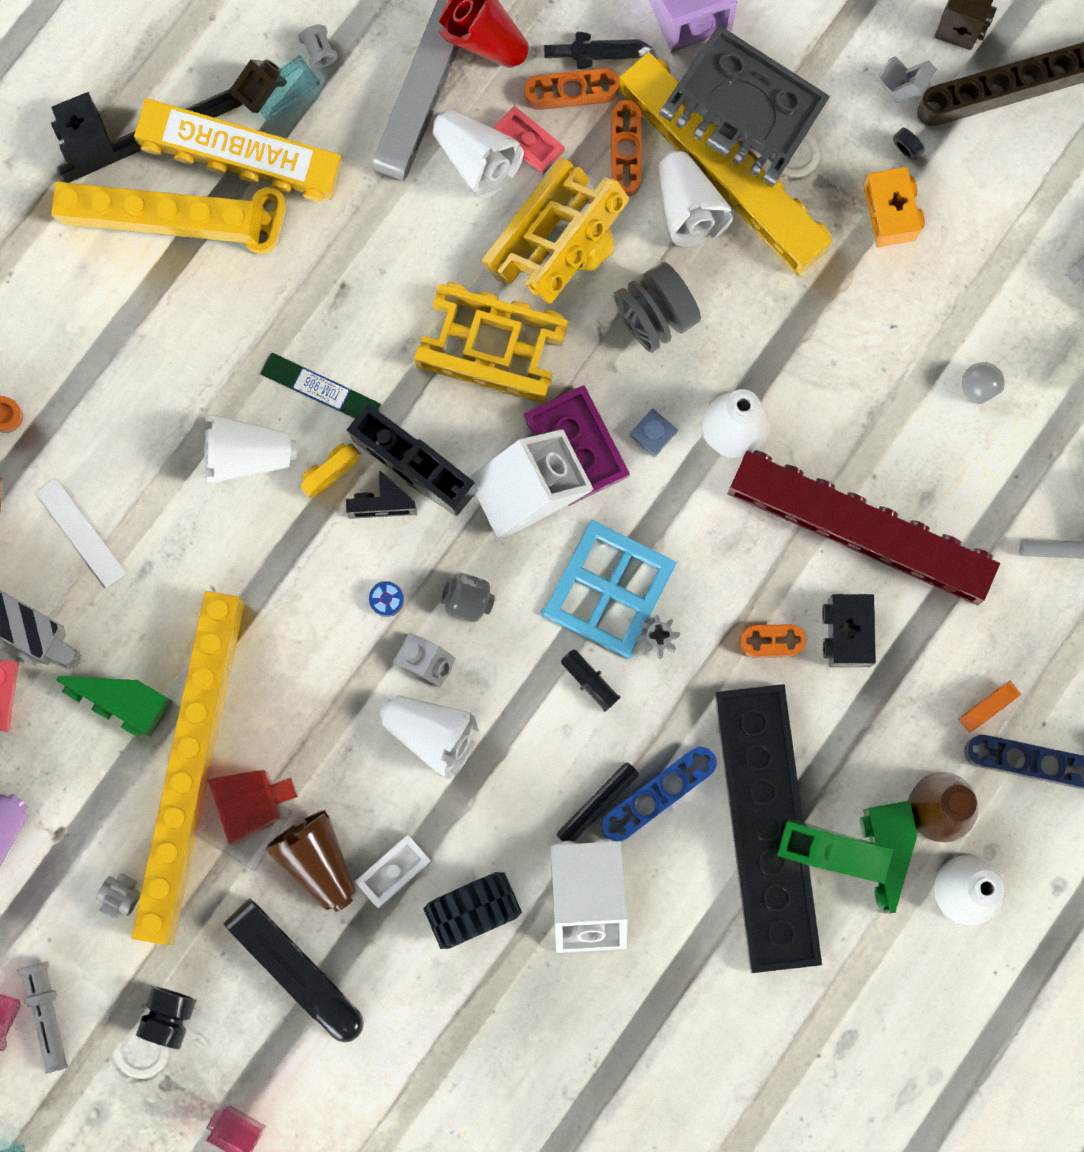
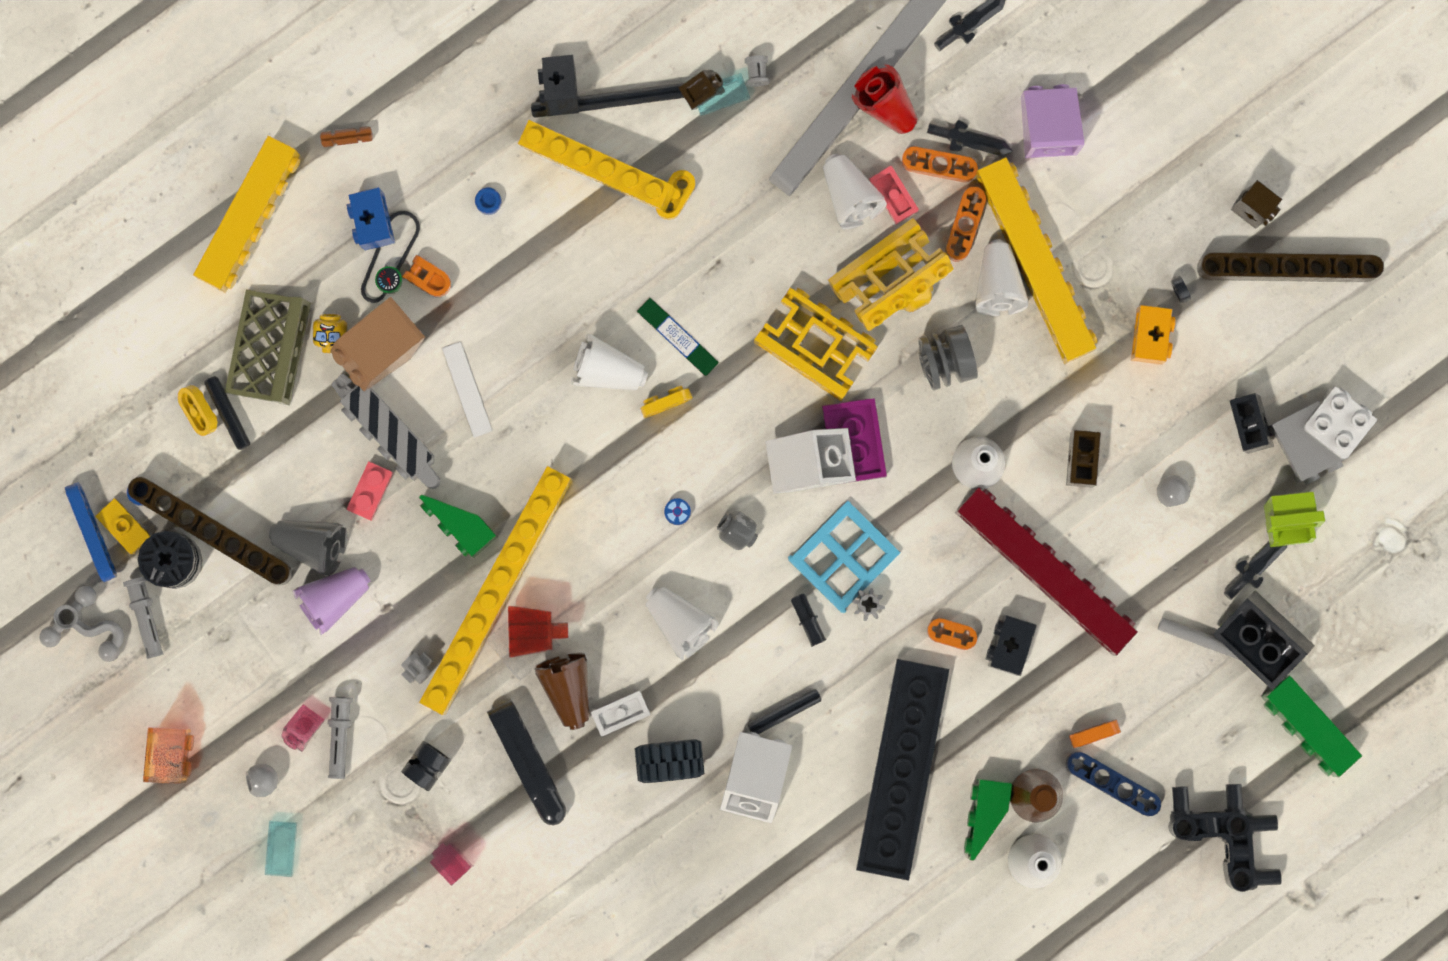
camera: 15 degrees right, 5 degrees up
(39, 298) = (488, 201): none -> blue tile
(238, 150) = (671, 135): yellow brick -> none
(389, 504) = (703, 441): black slope -> none
(412, 460) = (728, 416): black brick -> none
(425, 659) = (691, 566): light grey bracket -> none
(653, 432) = (915, 449): sand blue plate -> none
(657, 792) = (832, 722): blue beam -> none
(748, 102) = (1069, 220): dark grey hinge -> none
(834, 851) = (943, 803): green slope -> none
(861, 377) = (1083, 458): none -> dark brown brick
(904, 82) = (1194, 240): light grey bracket -> none
(1049, 271) = (1251, 423): none -> black brick

